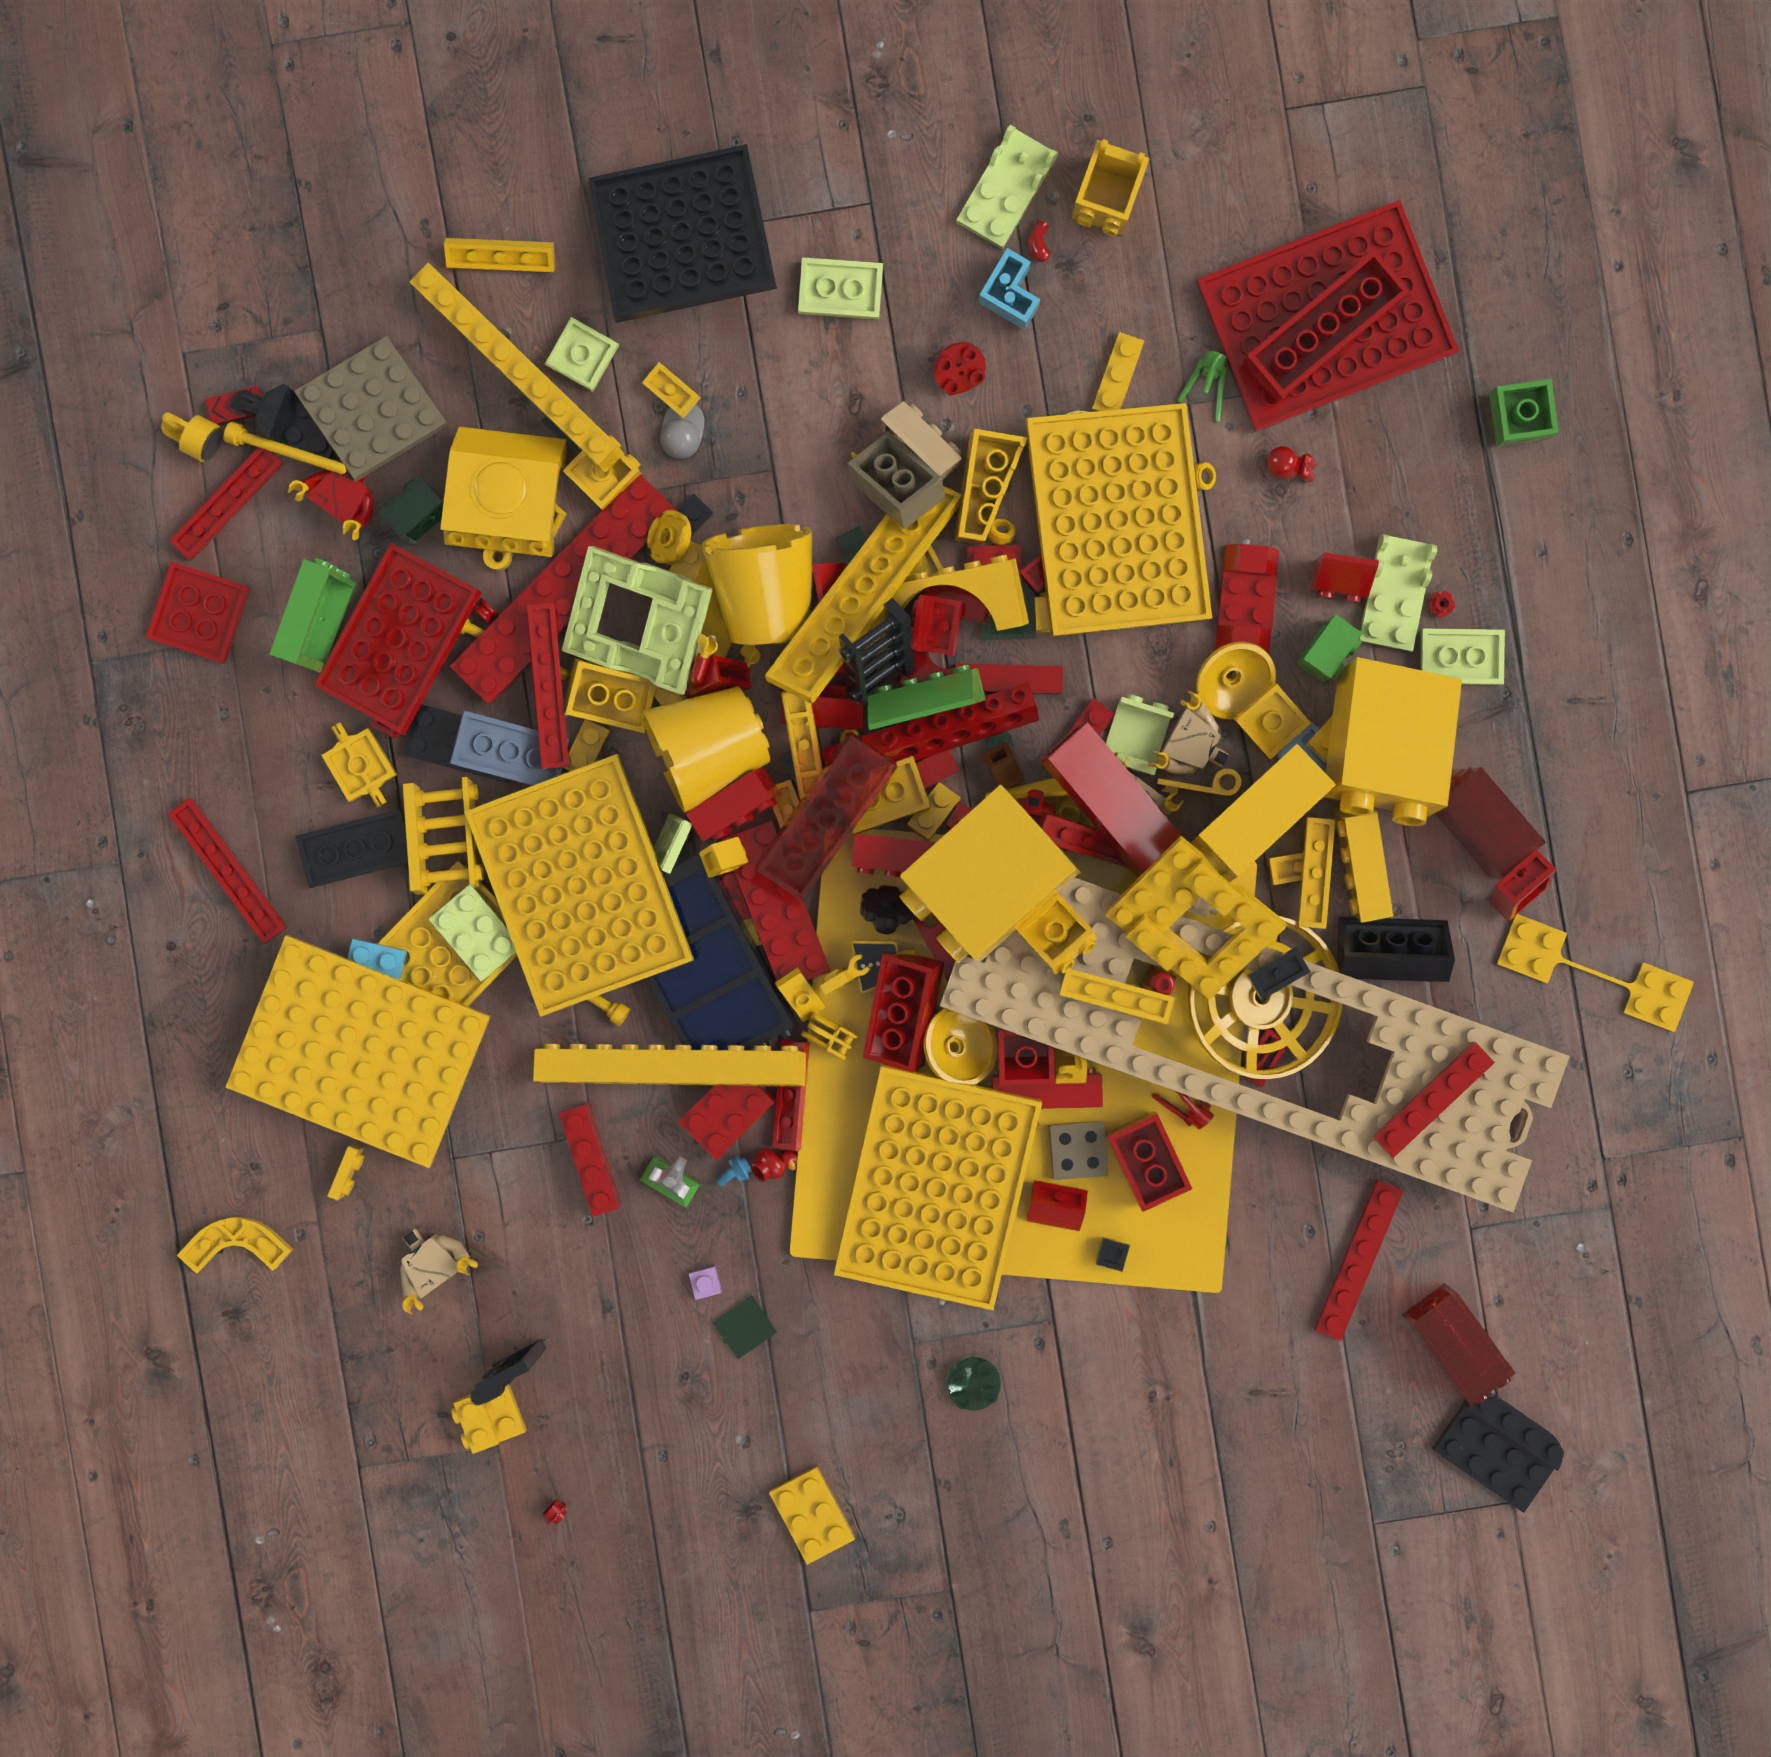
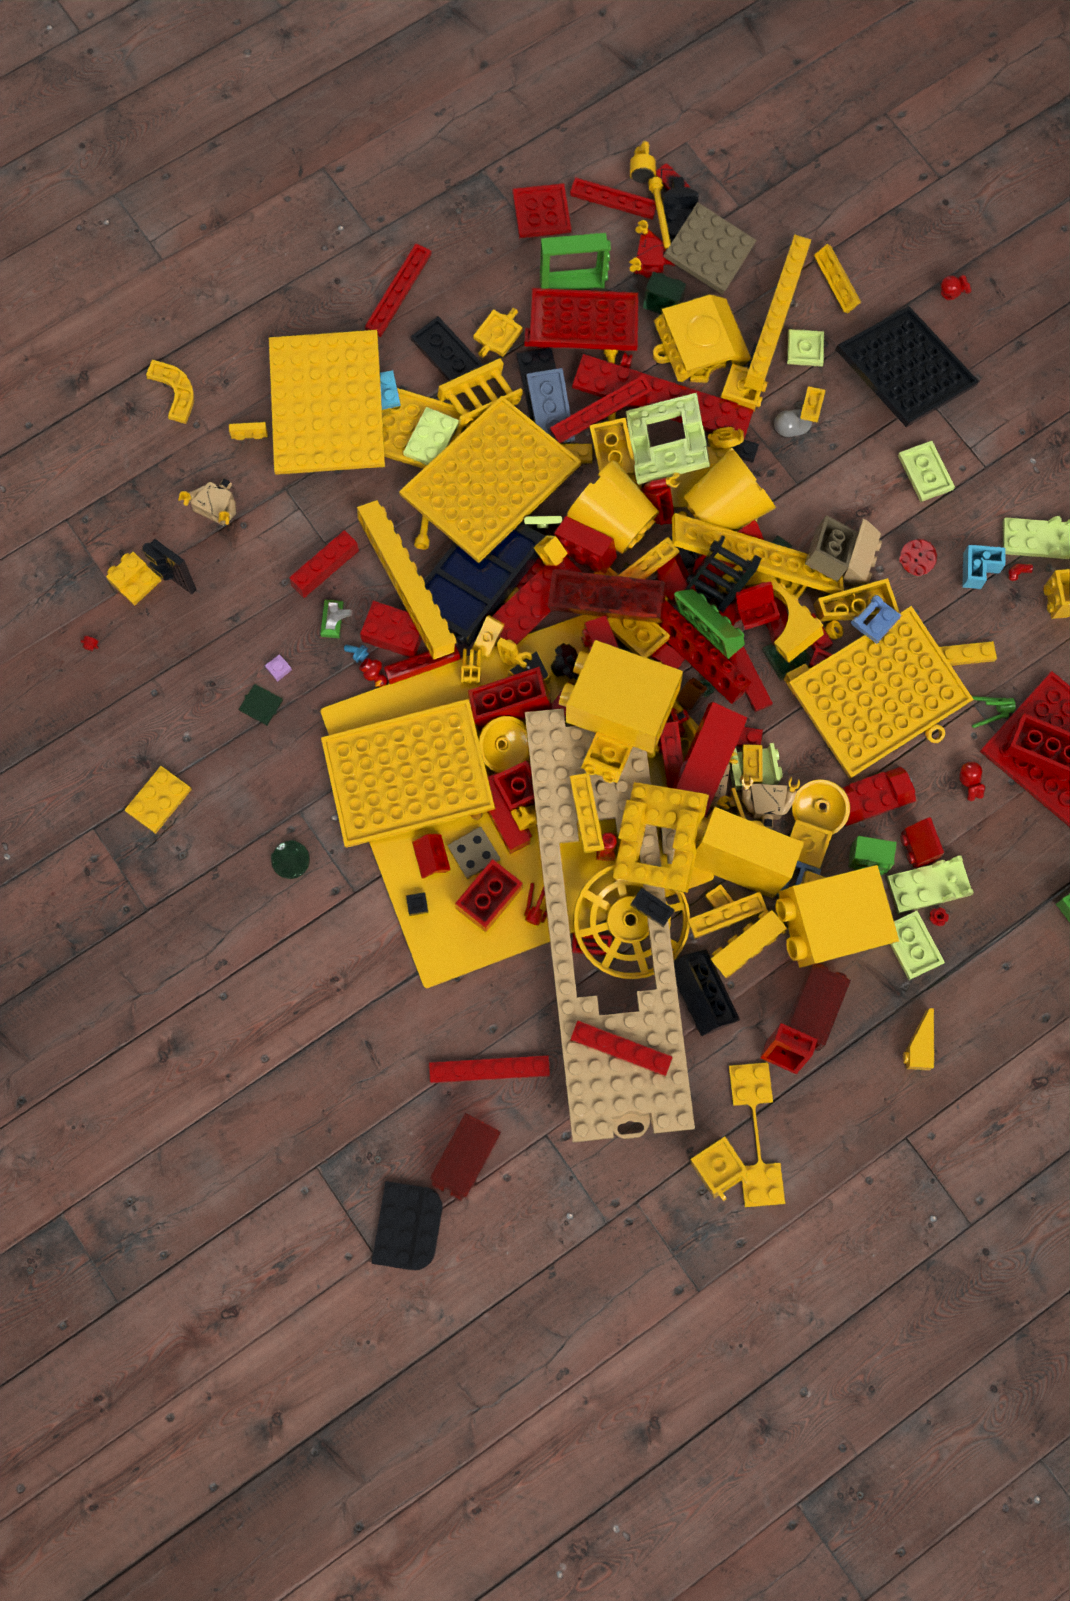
camera: 60 degrees right, 15 degrees down
(590, 101) = (952, 287): none -> red piece
(1033, 472) = (880, 623): none -> medium blue plate
(1133, 736) = (752, 763): none -> yellow plate
(1591, 716) = (920, 1050): none -> yellow slope
(1626, 1046) = (720, 1168): none -> yellow container

